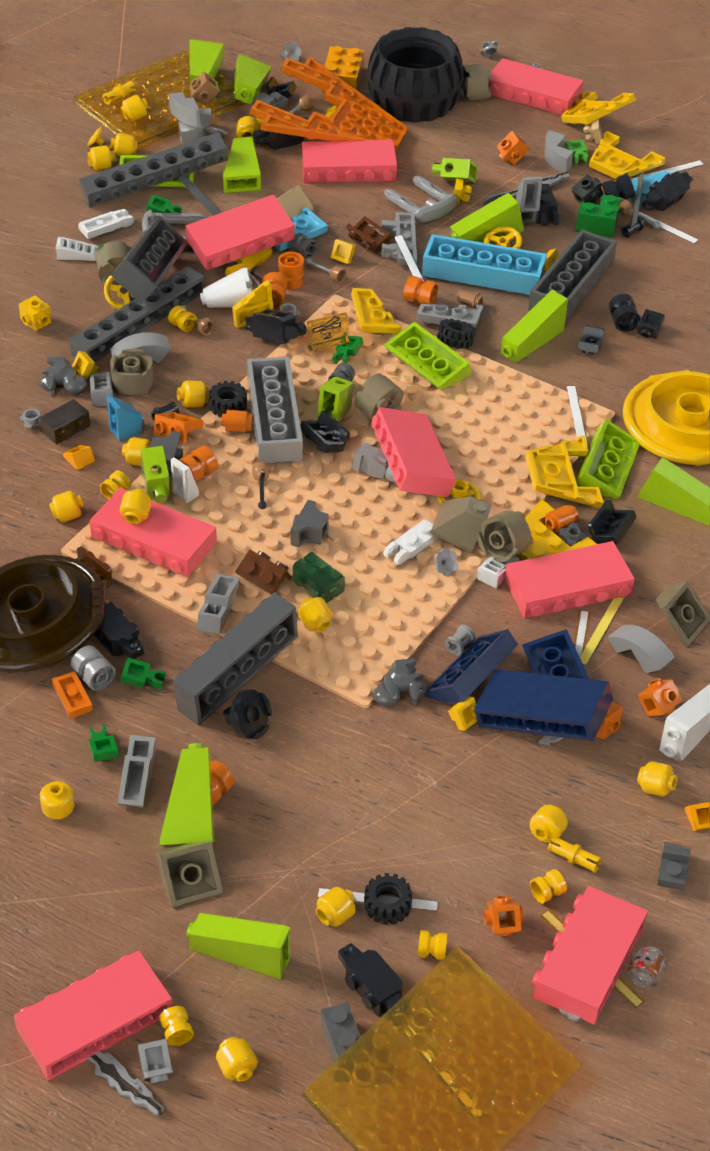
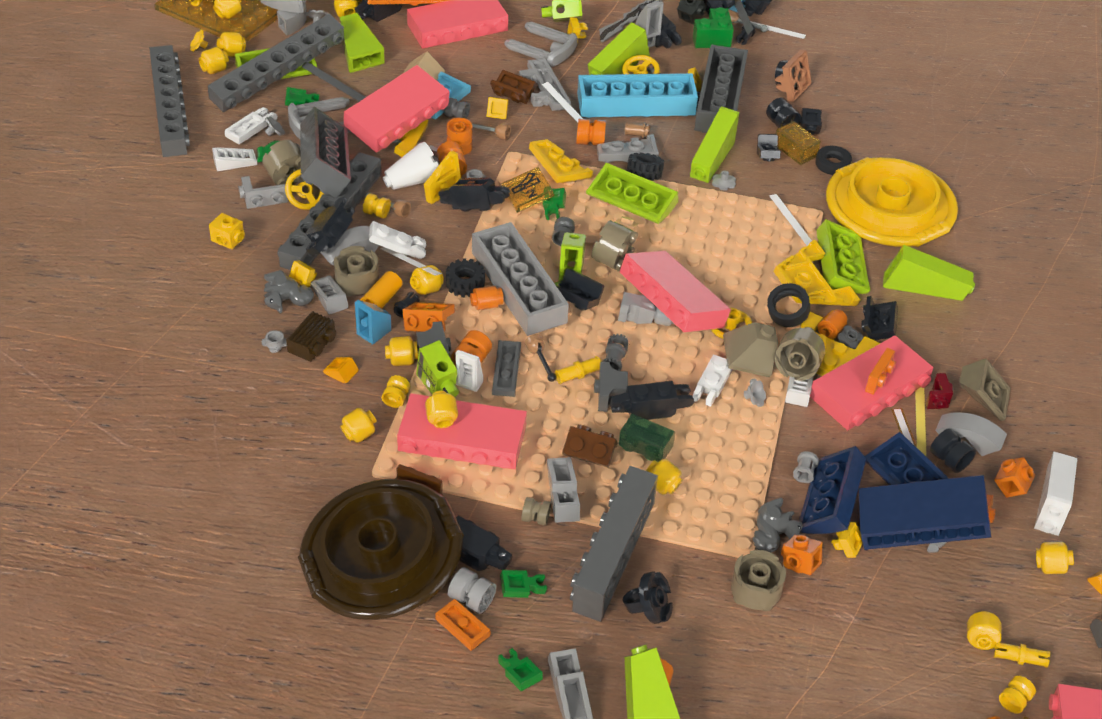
camera: 20 degrees left, 0 degrees up
(42, 187) = (169, 101): none -> dark grey brick
(83, 289) = (261, 196): none -> light grey bracket
(122, 327) = (329, 227): none -> black hinge
(125, 228) = (273, 127): none -> light grey plant
(148, 395) = (383, 289): none -> light orange pin
(183, 353) = (397, 240): none -> white hinge
(184, 372) = (411, 261): none -> white sticker
(185, 616) = (536, 511): none -> dark tan wheel
(224, 488) = (506, 368): none -> dark grey tile
(286, 504) = (578, 370): none -> yellow pin
(332, 496) = (615, 351): none -> dark grey connector
(341, 545) = (652, 400): none -> black hinge
(355, 724) = (758, 580): none -> dark tan brick
(409, 713) = (802, 554): none -> orange brick
(518, 476) = (788, 290): none -> black tyre
(532, 363) = (724, 181): none -> light grey plant
(573, 568) = (878, 375): none -> orange plate
(612, 659) = (949, 447): none -> black wheel
(623, 342) = (797, 143): none -> clear yellow brick
(630, 609) = (941, 393): none -> dark red bracket
(653, 357) = (832, 152): none -> black tyre
(655, 276) = (793, 75): none -> nougat piece

